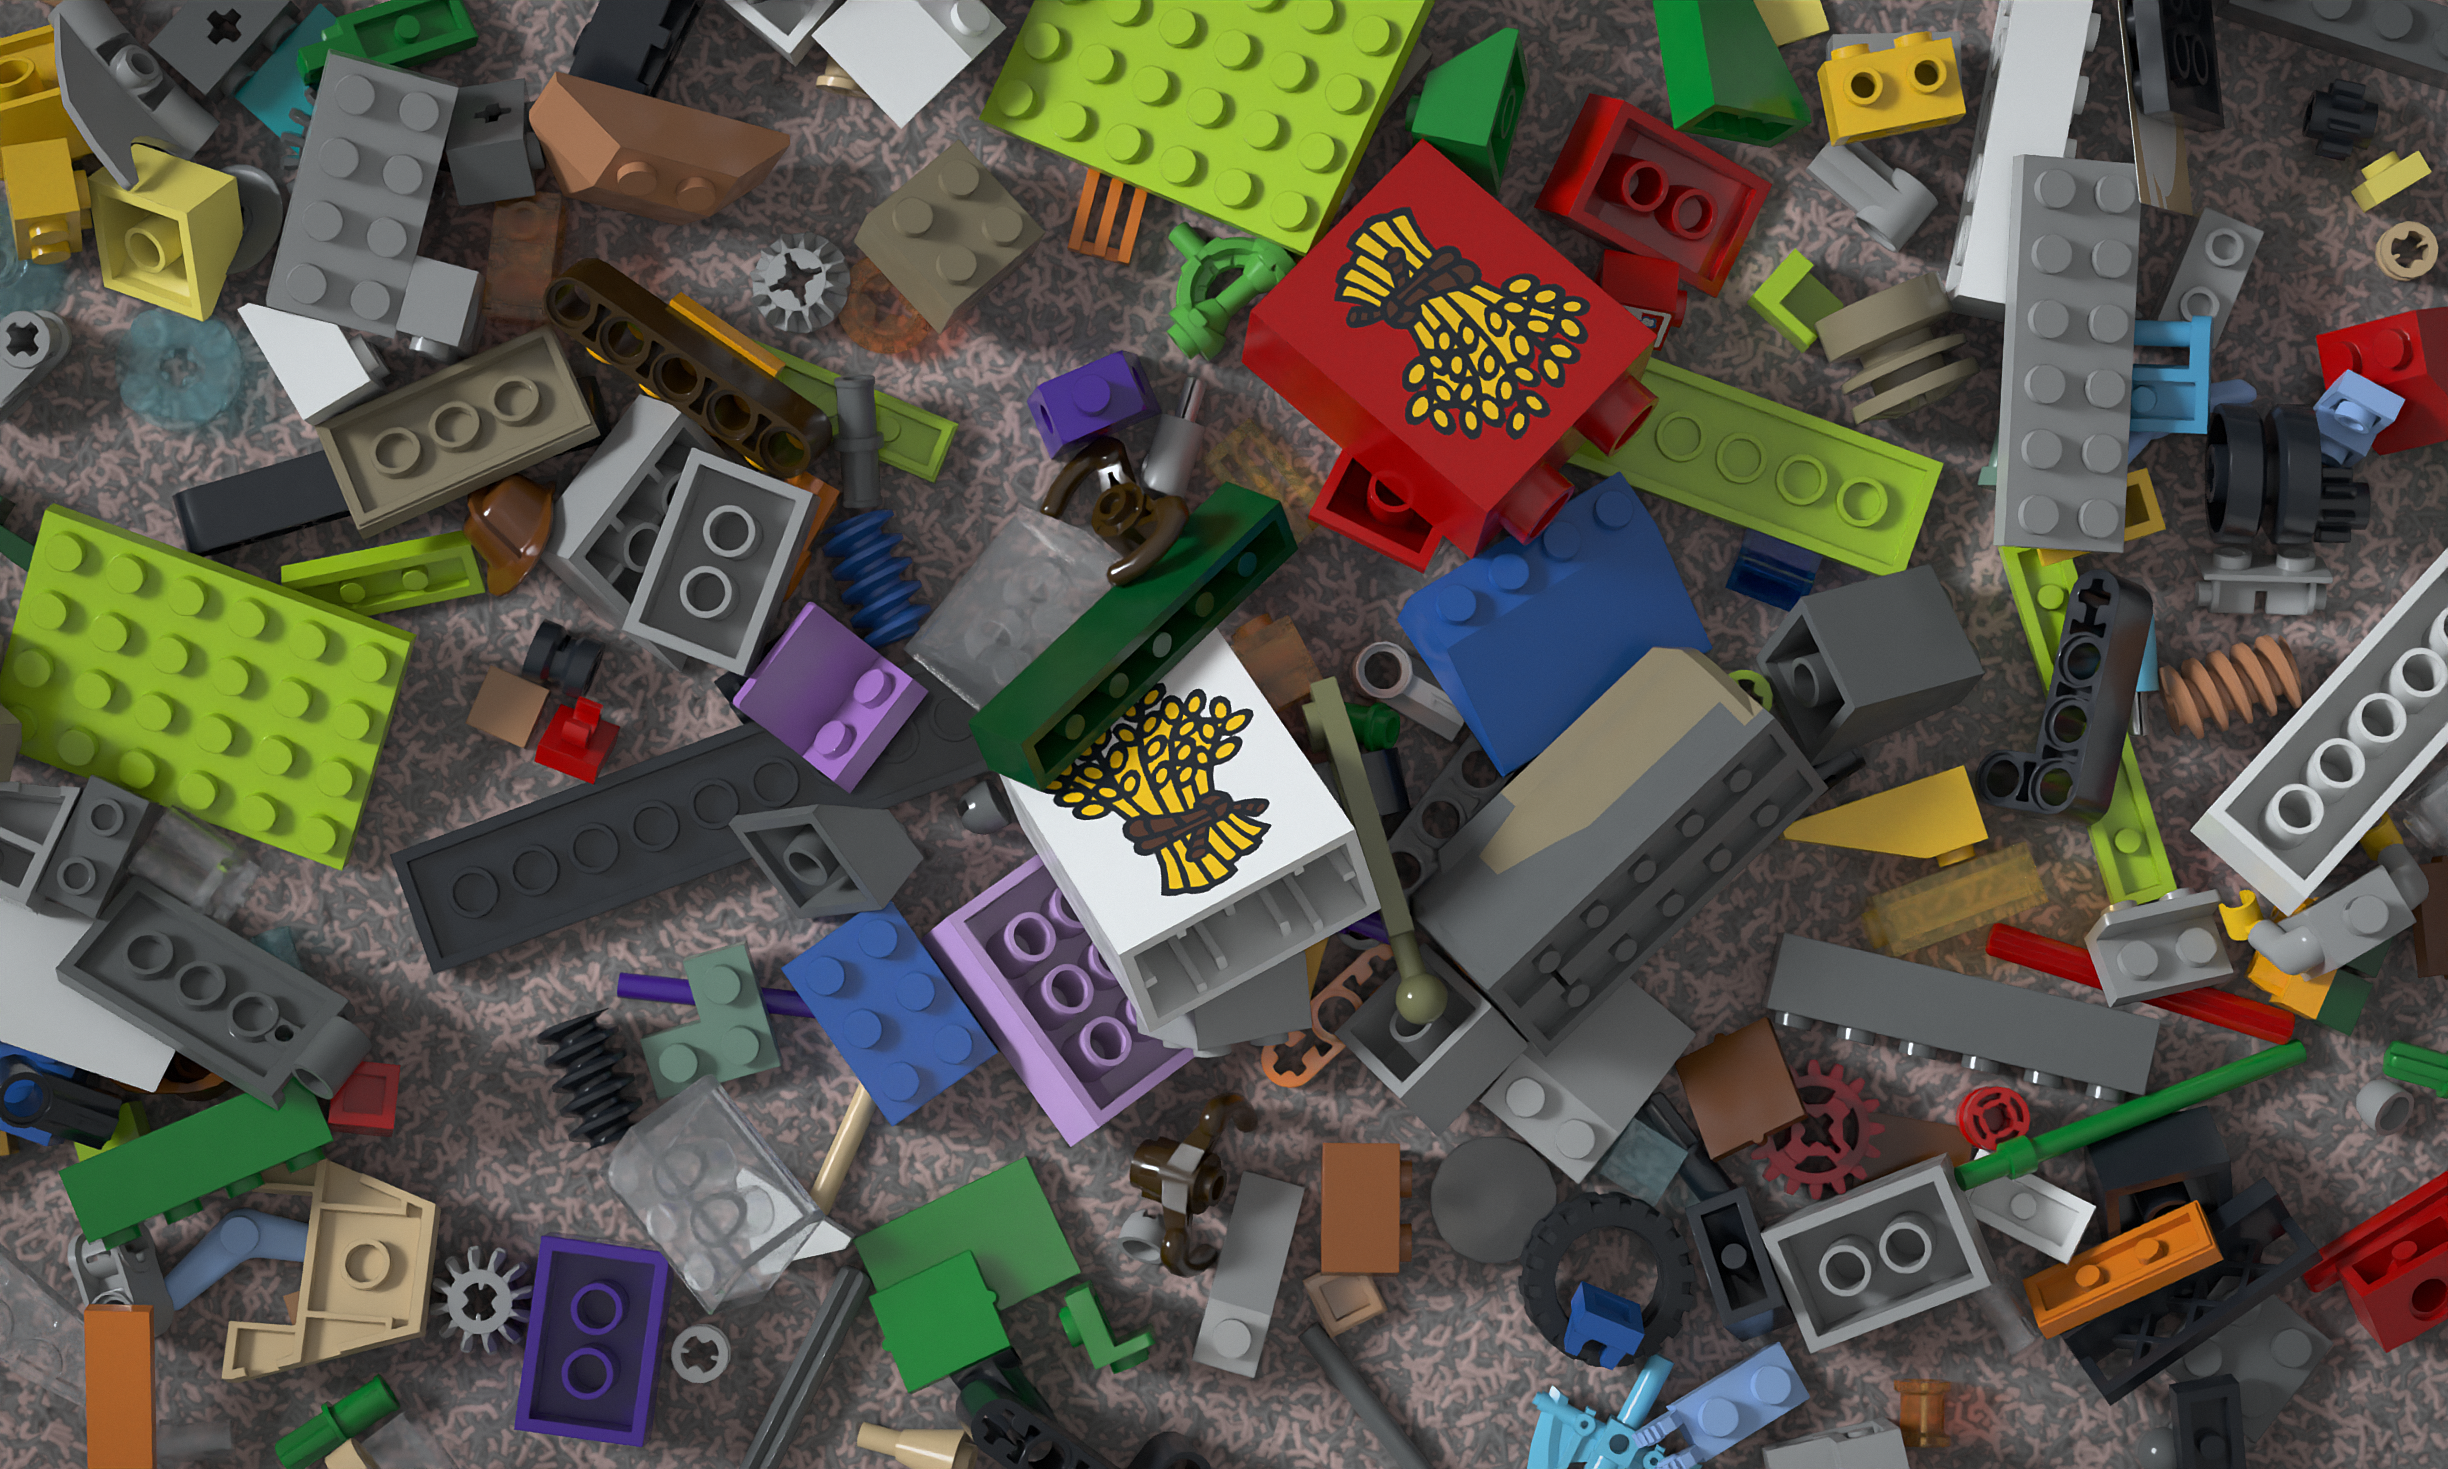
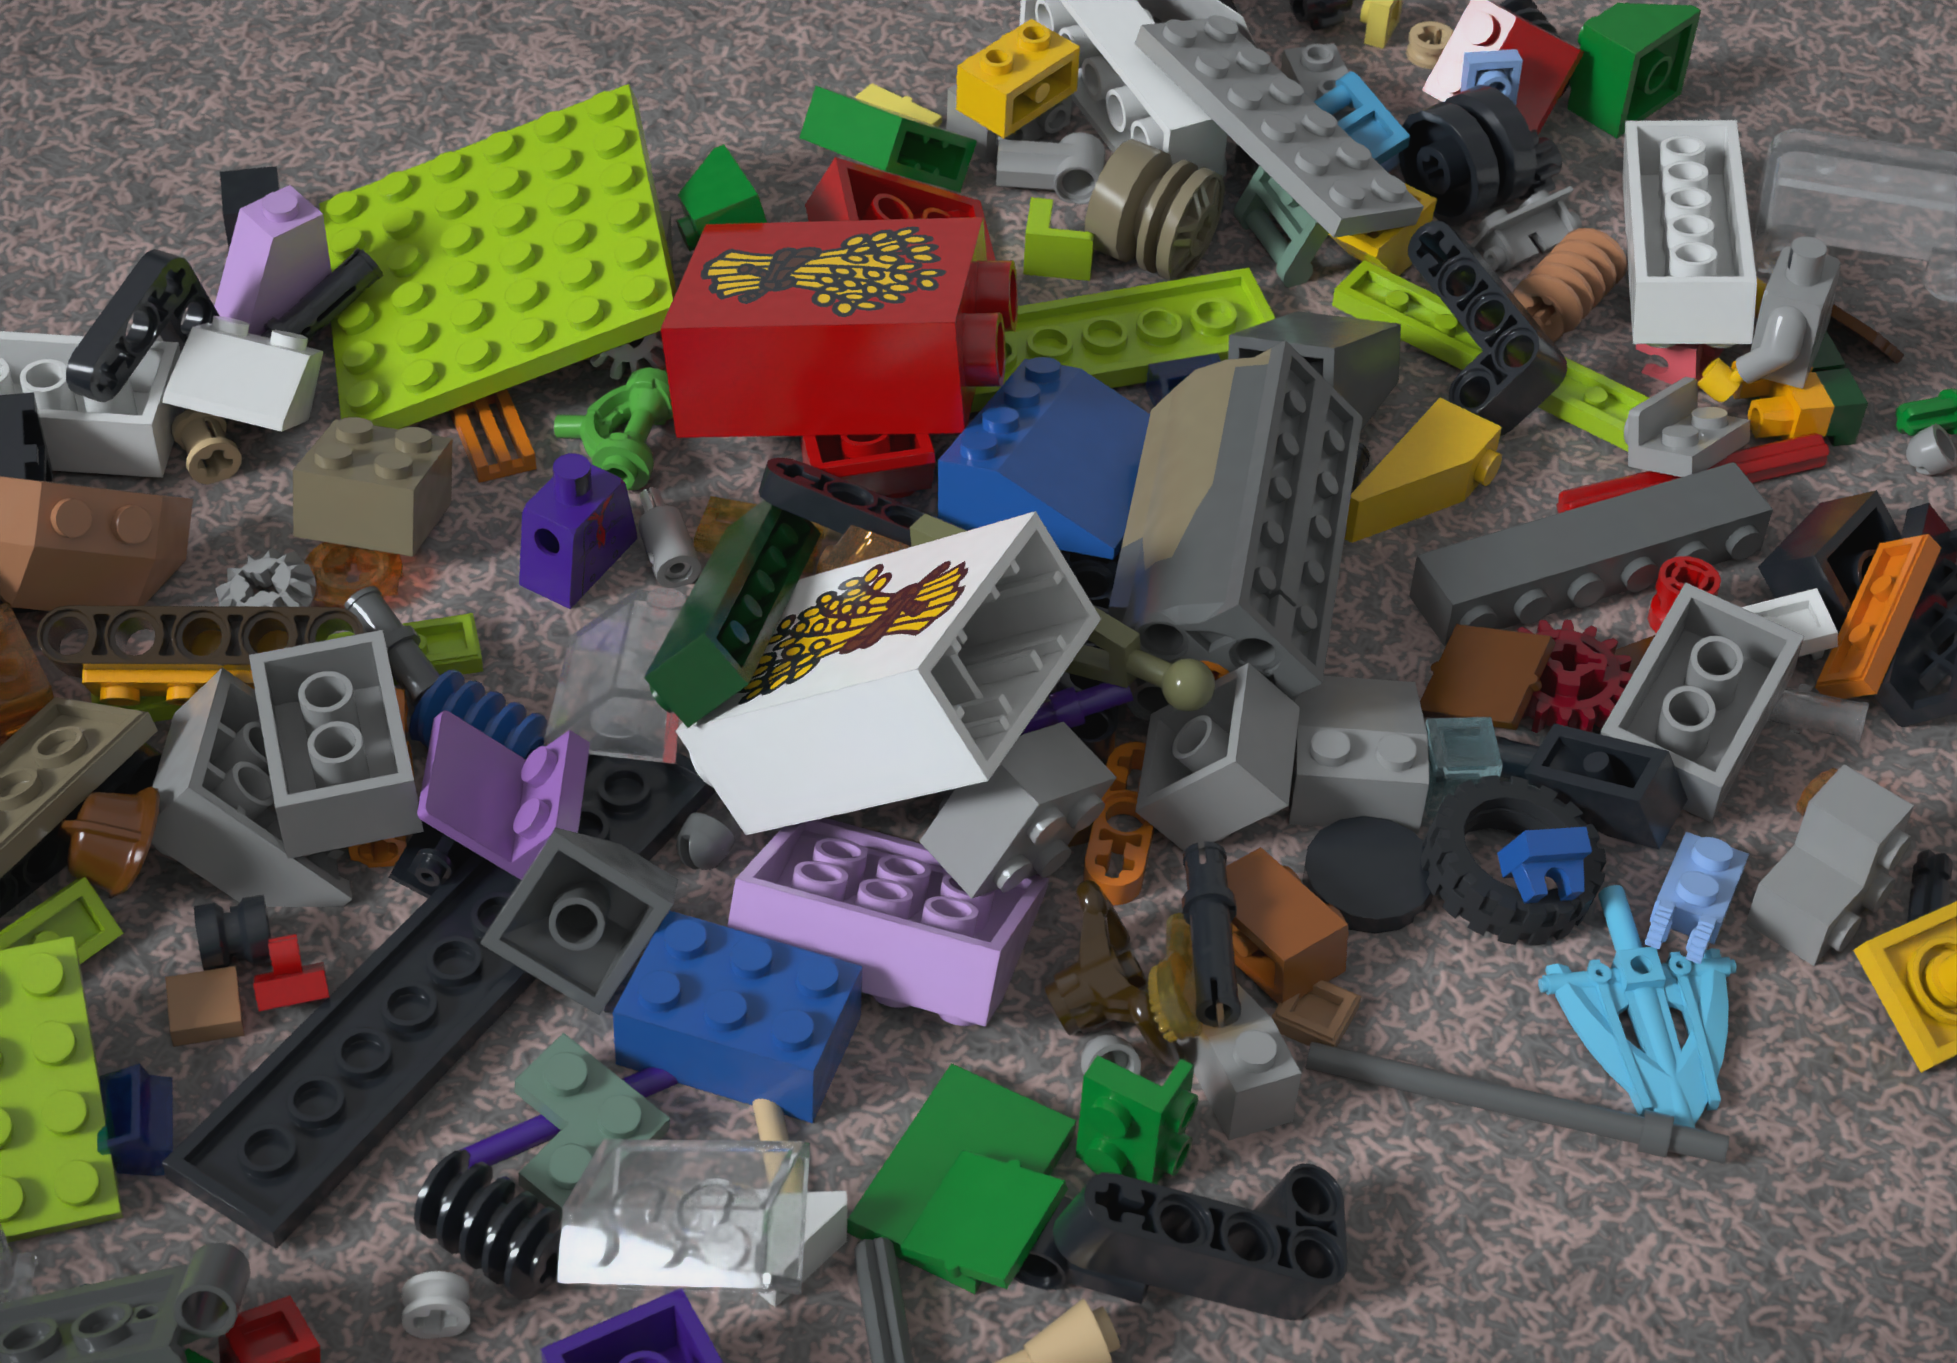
camera: 35 degrees left, 40 degrees down
(393, 799) = (136, 1120): none -> clear blue piece
(514, 1111) = (435, 1305): none -> white bush
(1124, 513) = (670, 565): dark brown piece -> none
(1227, 1232) = (1173, 985): none -> clear yellow piece
(1281, 1212) = (1209, 911): none -> black pin
(1317, 609) = (835, 501): none -> black beam
(1953, 900) = (1524, 463): clear yellow slope -> none
(2022, 1155) = (1735, 575): green bar -> none

